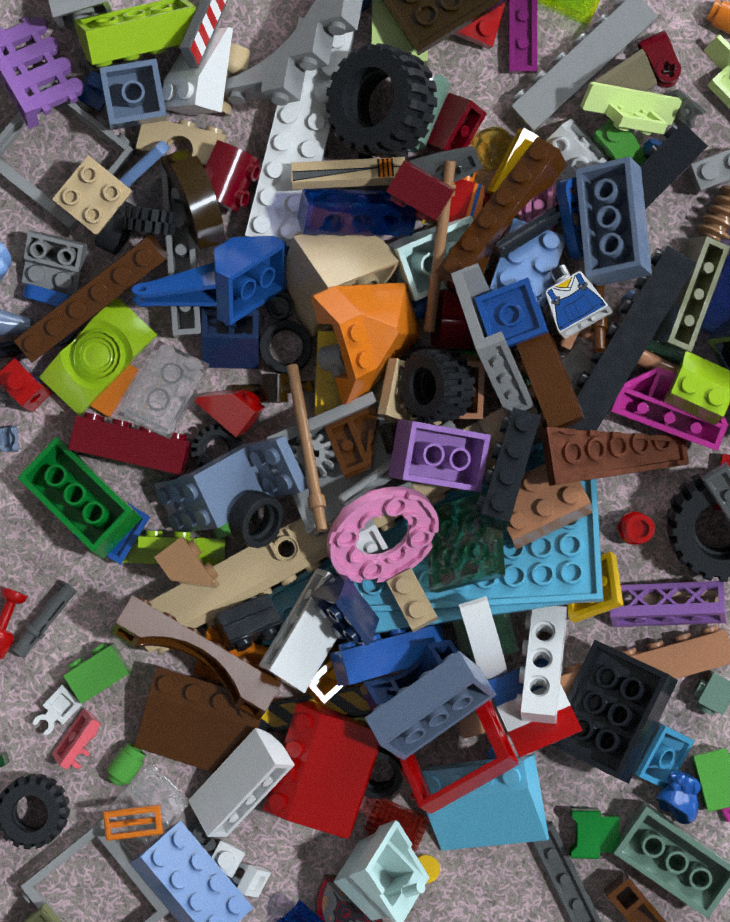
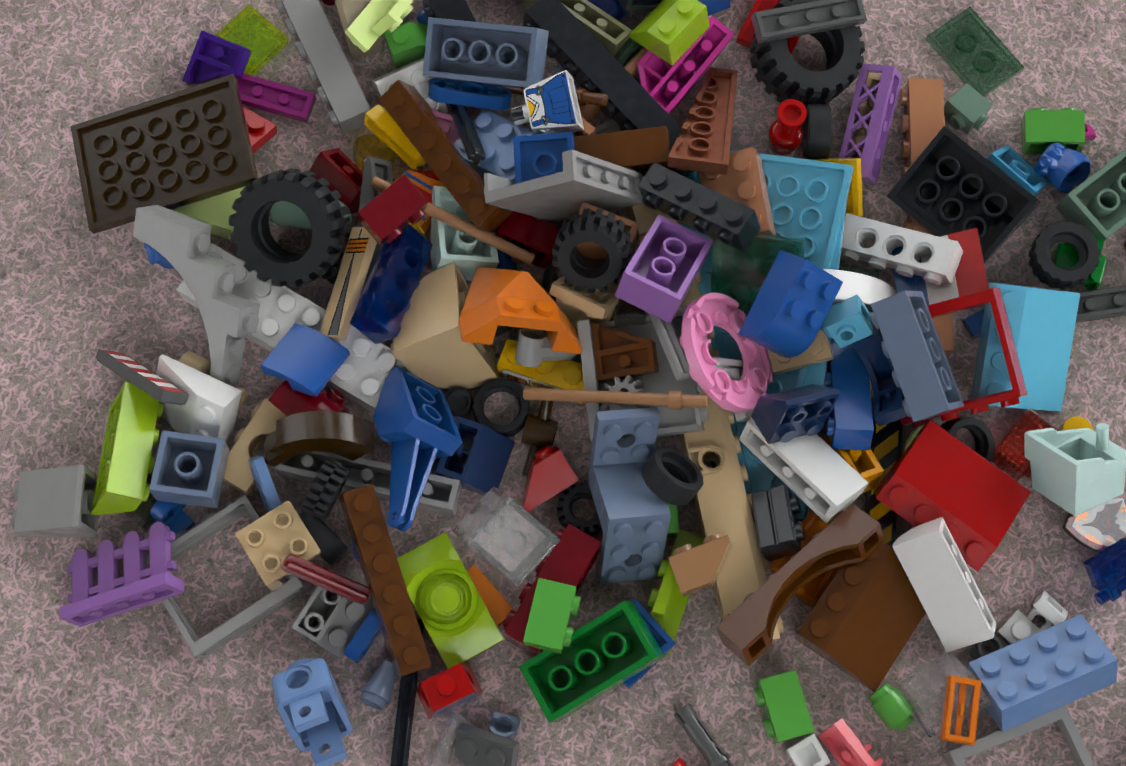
camera: 70 degrees left, 15 degrees down
(74, 242) = (325, 578): none -> dark red axle
(98, 451) = (551, 615): none -> bright green brick
(263, 159) = (305, 359): none -> blue slope
(439, 580) = (790, 306): none -> blue brick
(446, 635) = (848, 322): none -> medium azure brick
(607, 818) = (1076, 236): none -> black tyre
(643, 557) = (817, 131): none -> black tyre

